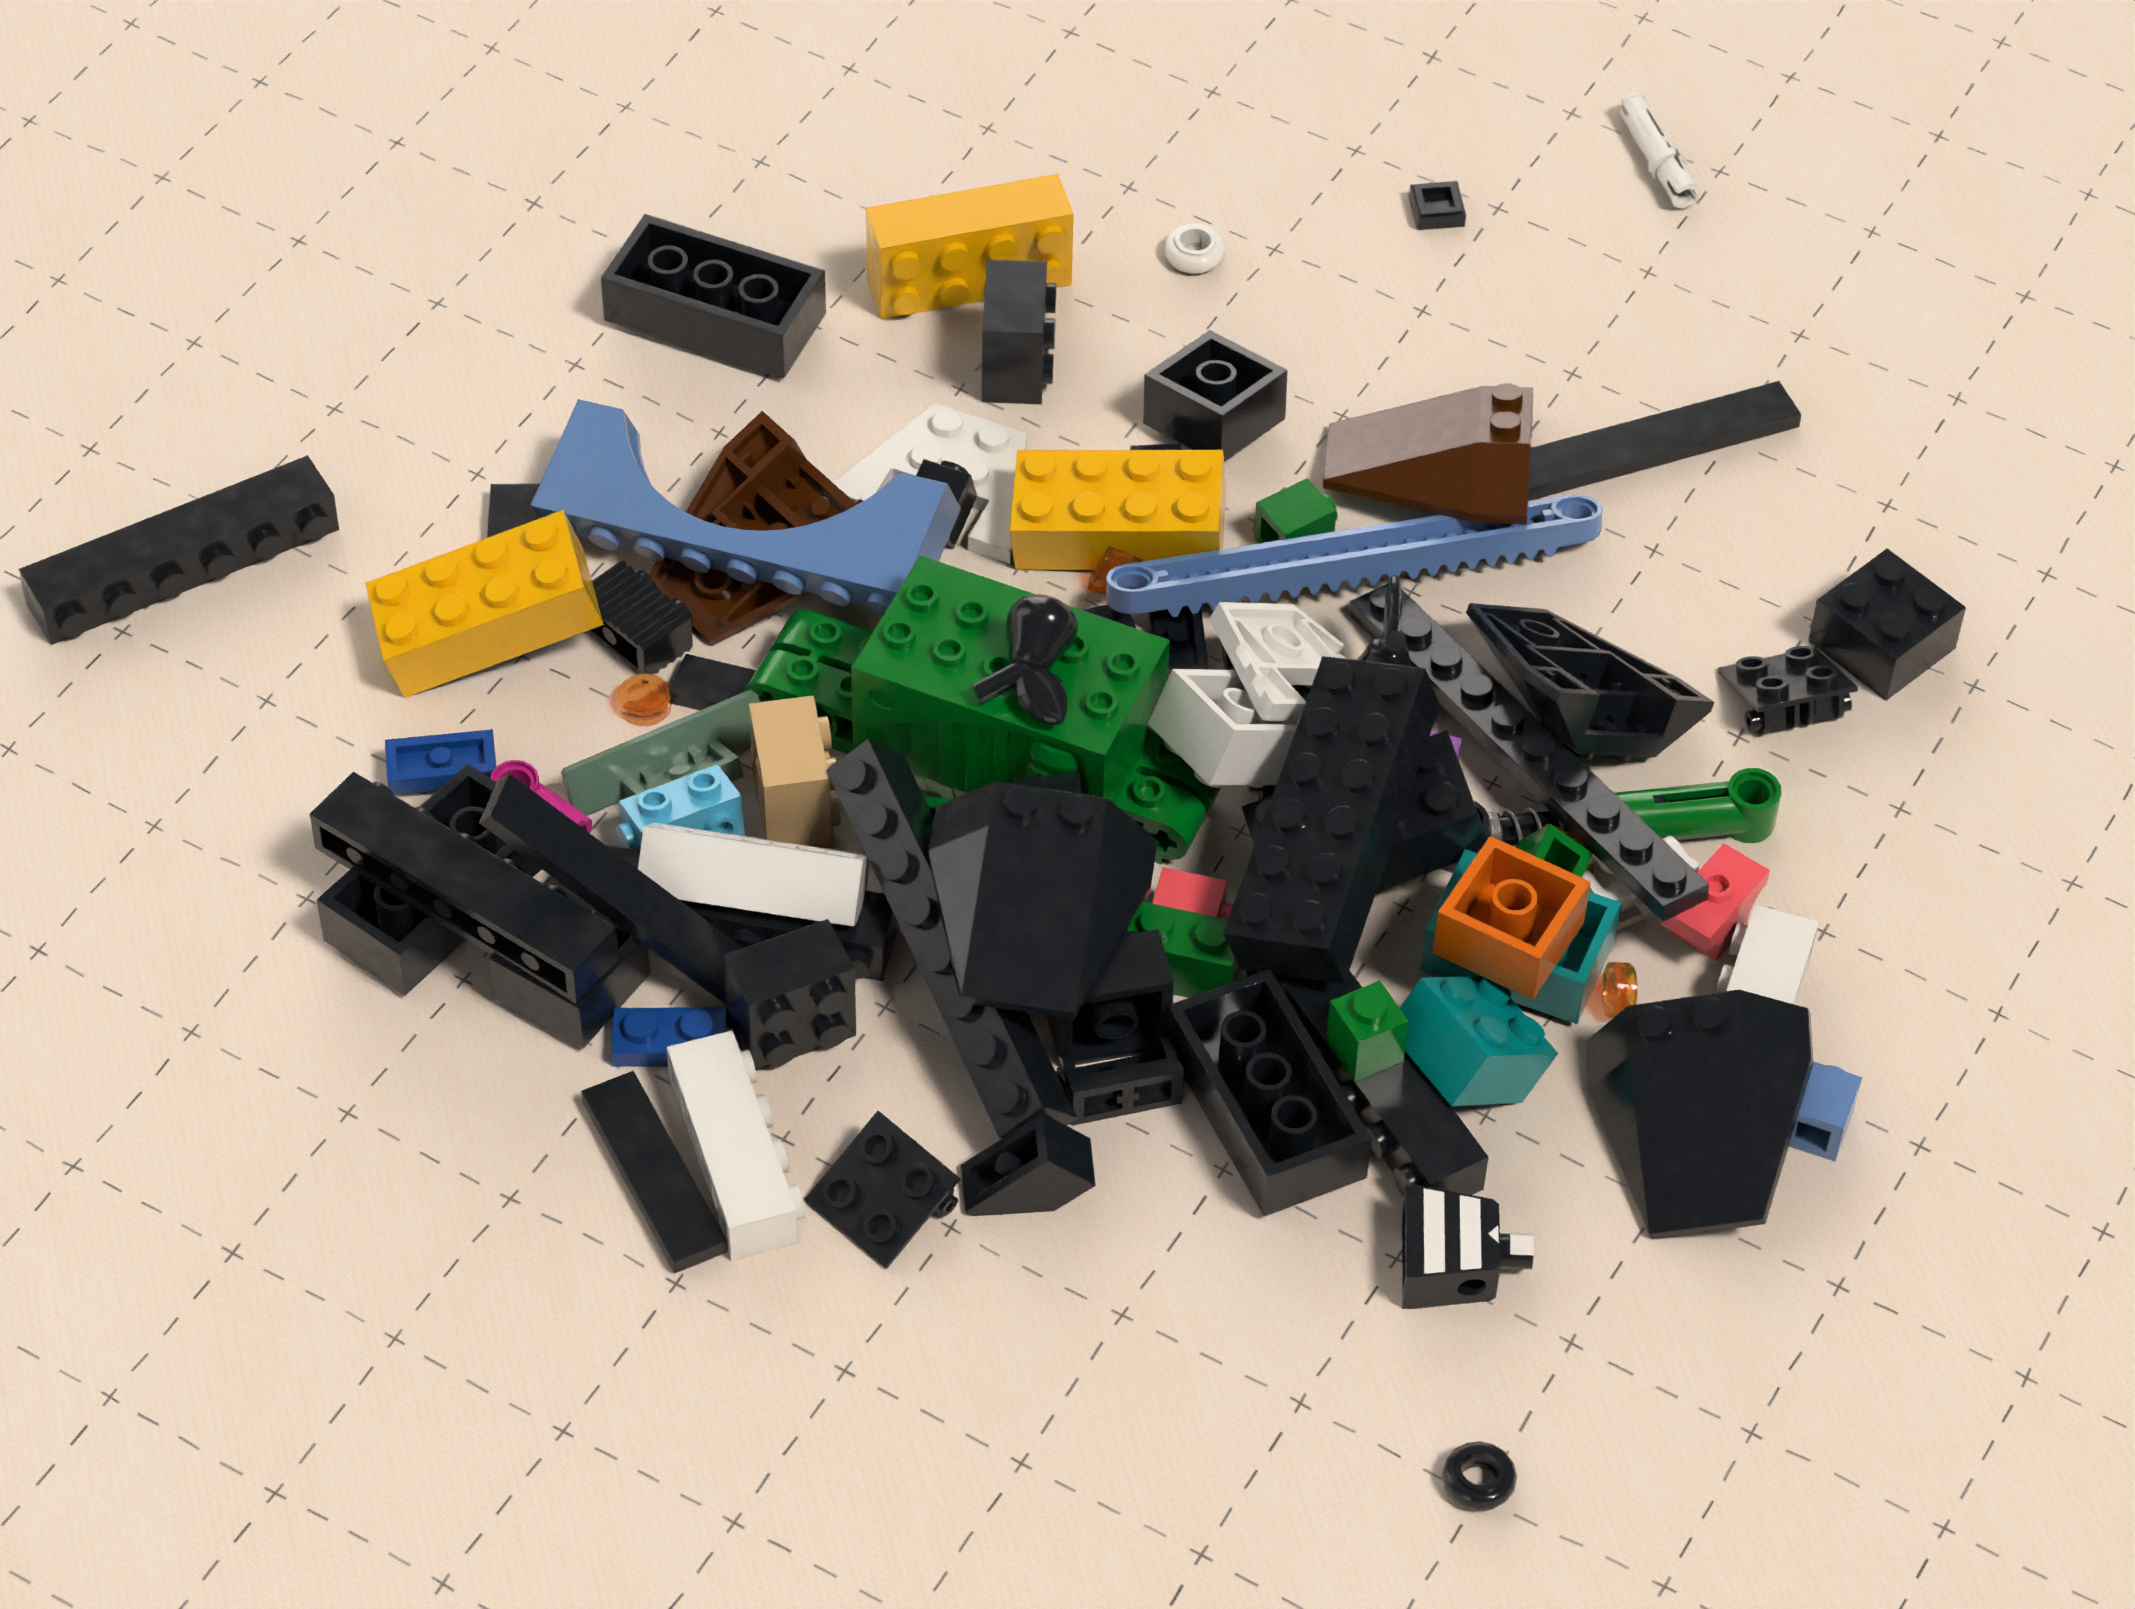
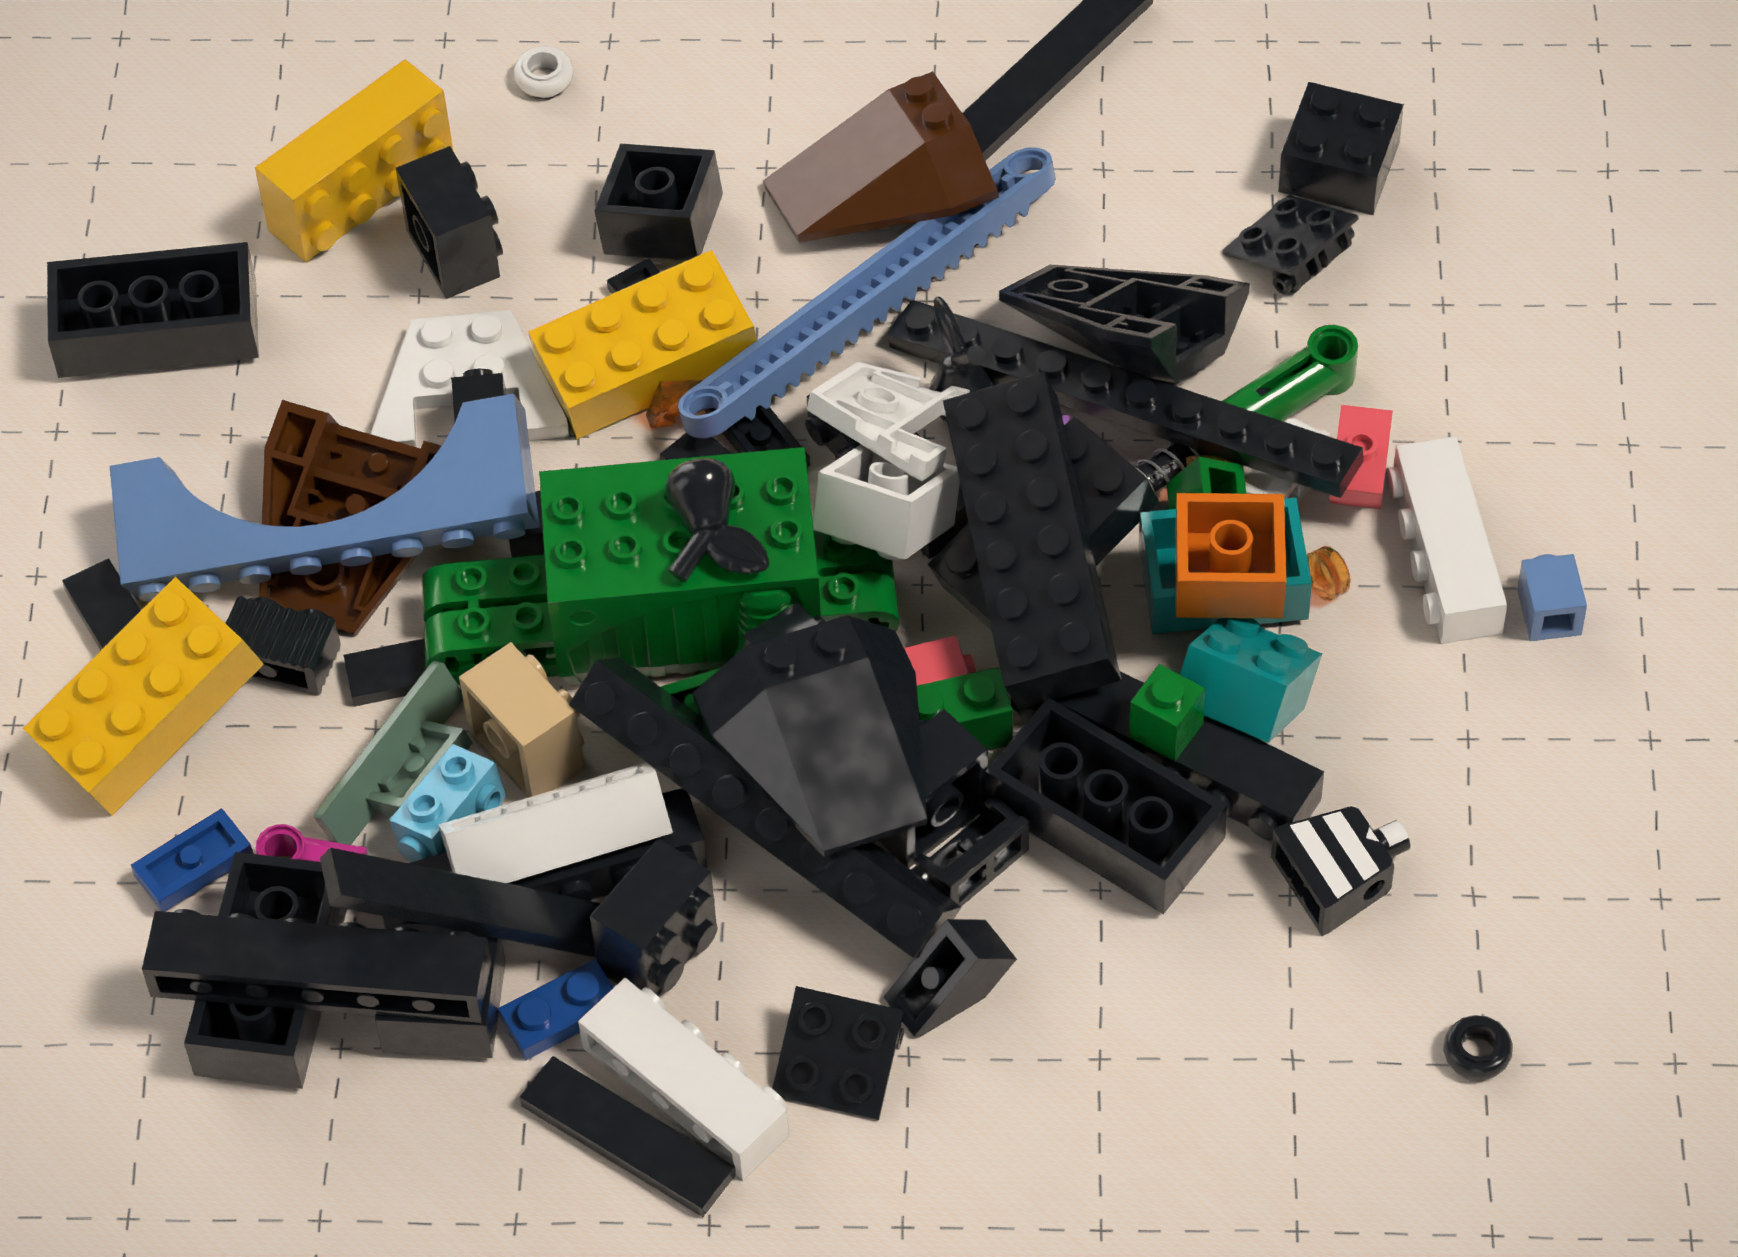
camera: 25 degrees left, 5 degrees up
(644, 699) = (332, 714): clear orange tile -> none
(1294, 513) = (794, 280): green brick -> none
(1702, 1104) = (1461, 643): black wedge -> none

